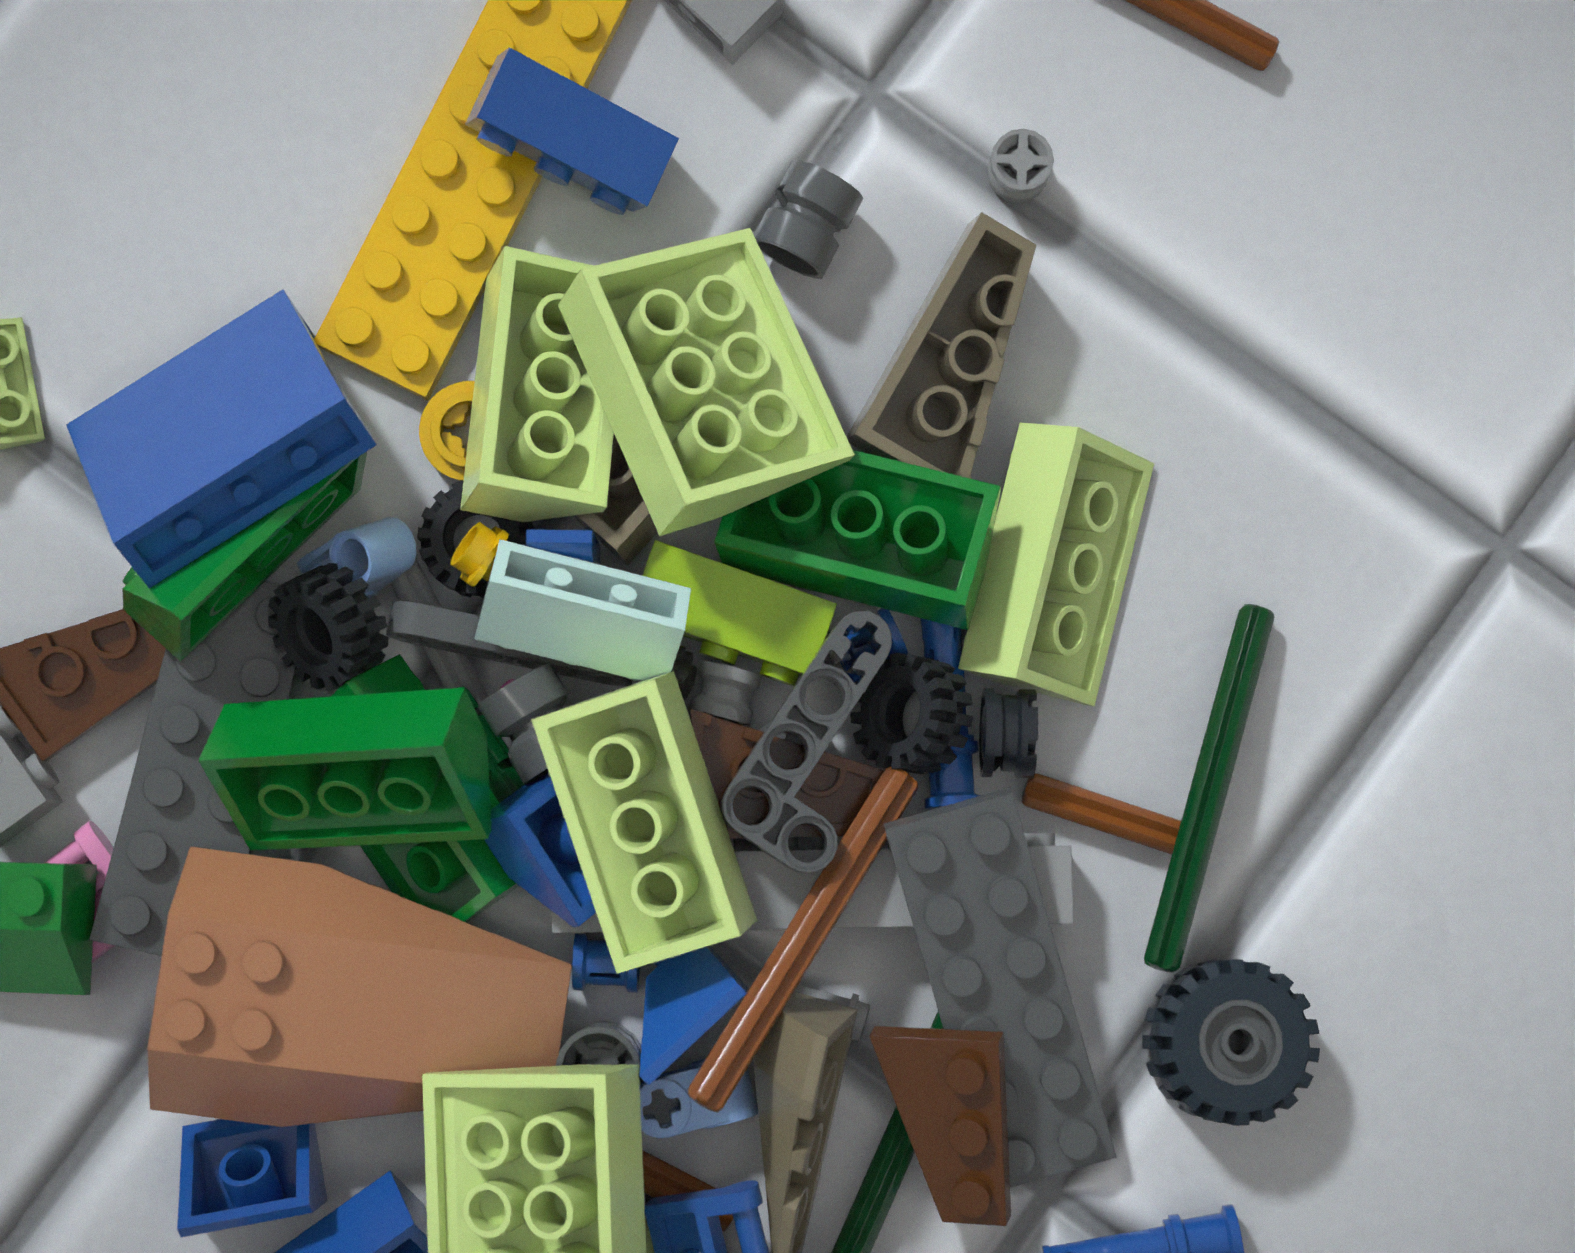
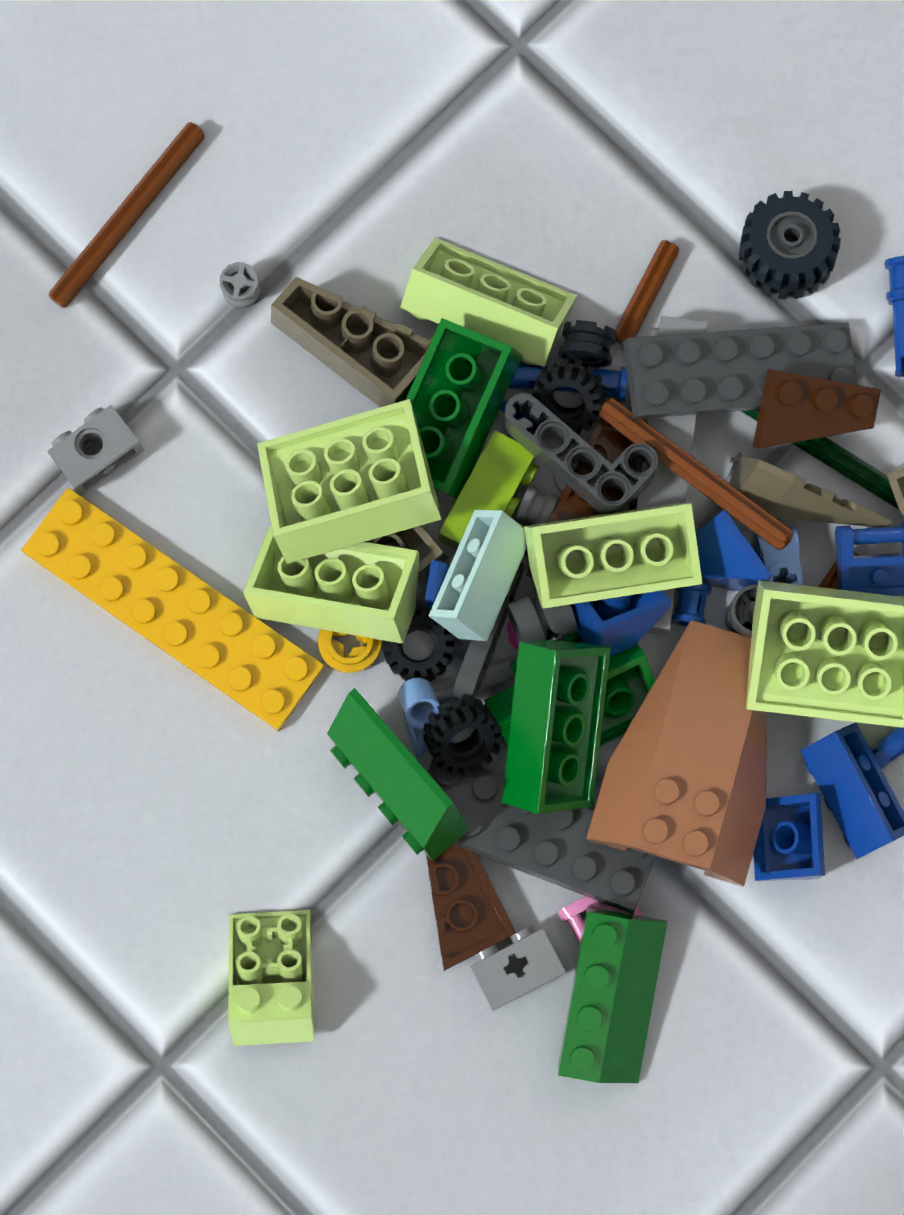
camera: 75 degrees left, 5 degrees down
(216, 439) = (334, 781): blue panel -> none
(477, 553) = (431, 636): yellow plate -> none
(570, 133) = (176, 547): blue brick -> none
(810, 213) = (249, 412): dark grey wheel -> none
(1209, 789) = (637, 233): dark green axle -> none

